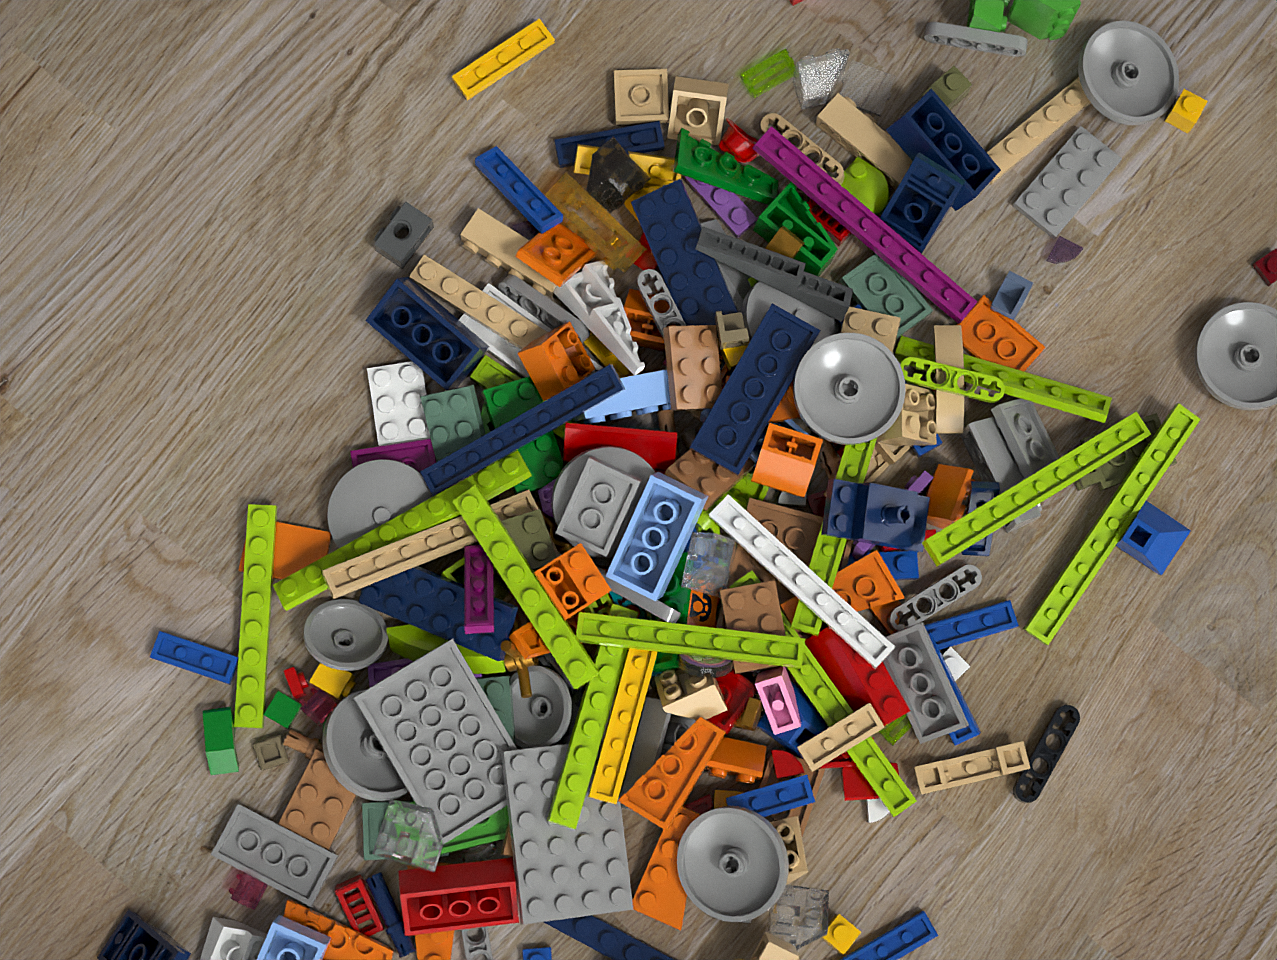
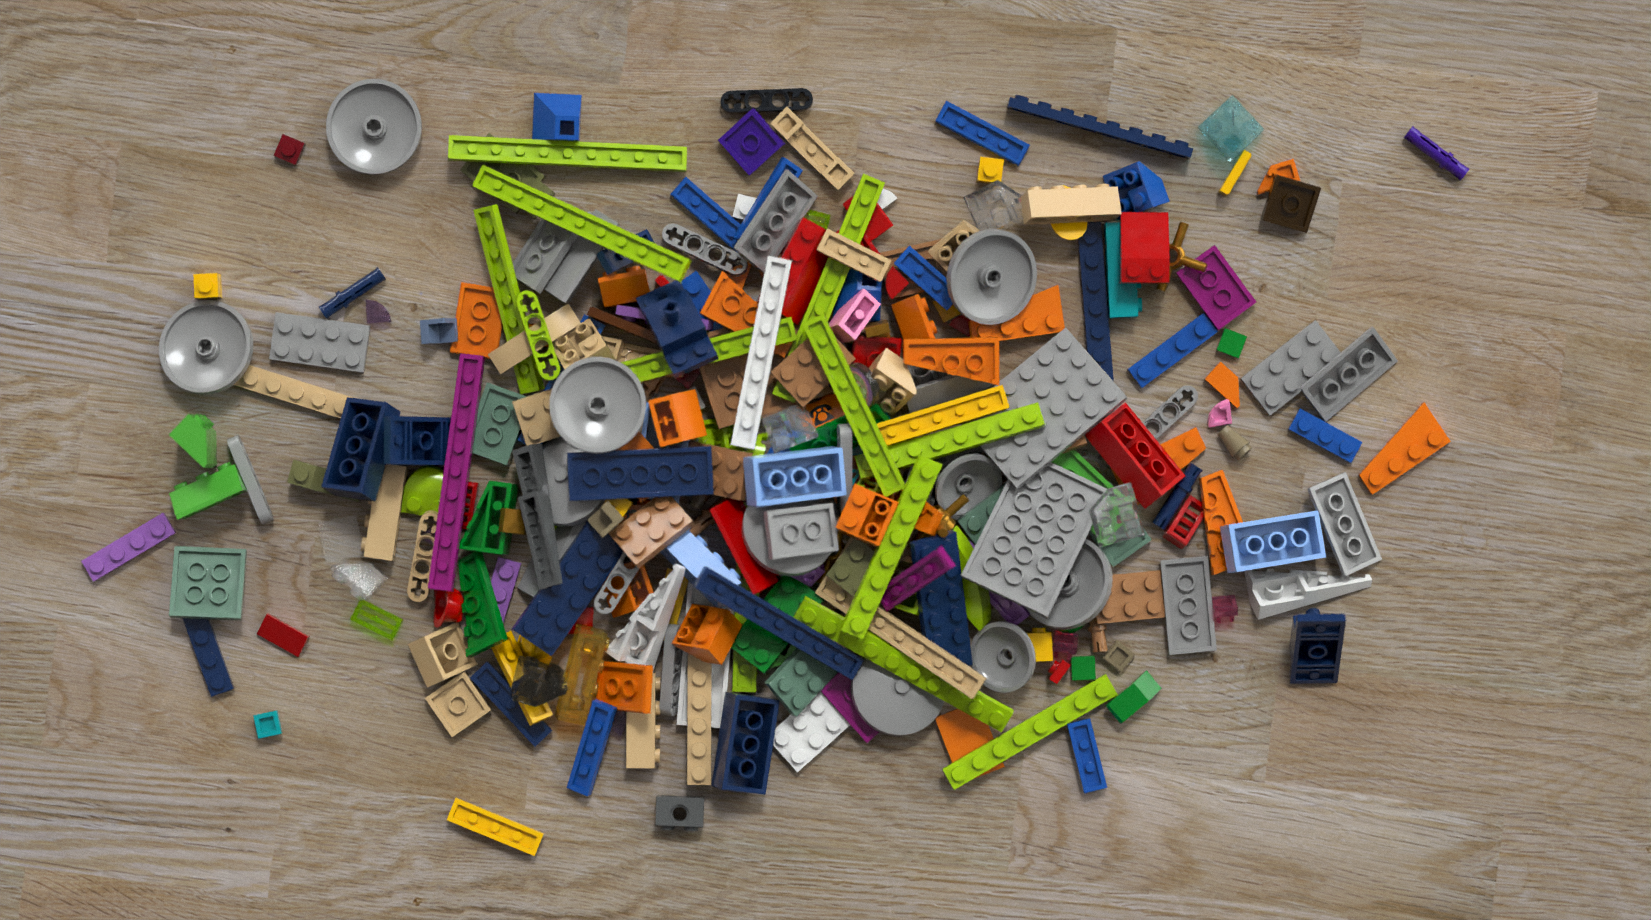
camera: 110 degrees left, 10 degrees up
(916, 467) = (621, 324): none -> reddish brown tile
(1015, 711) = (751, 141): none -> dark purple plate
(1096, 229) = (351, 293): none -> dark blue pin

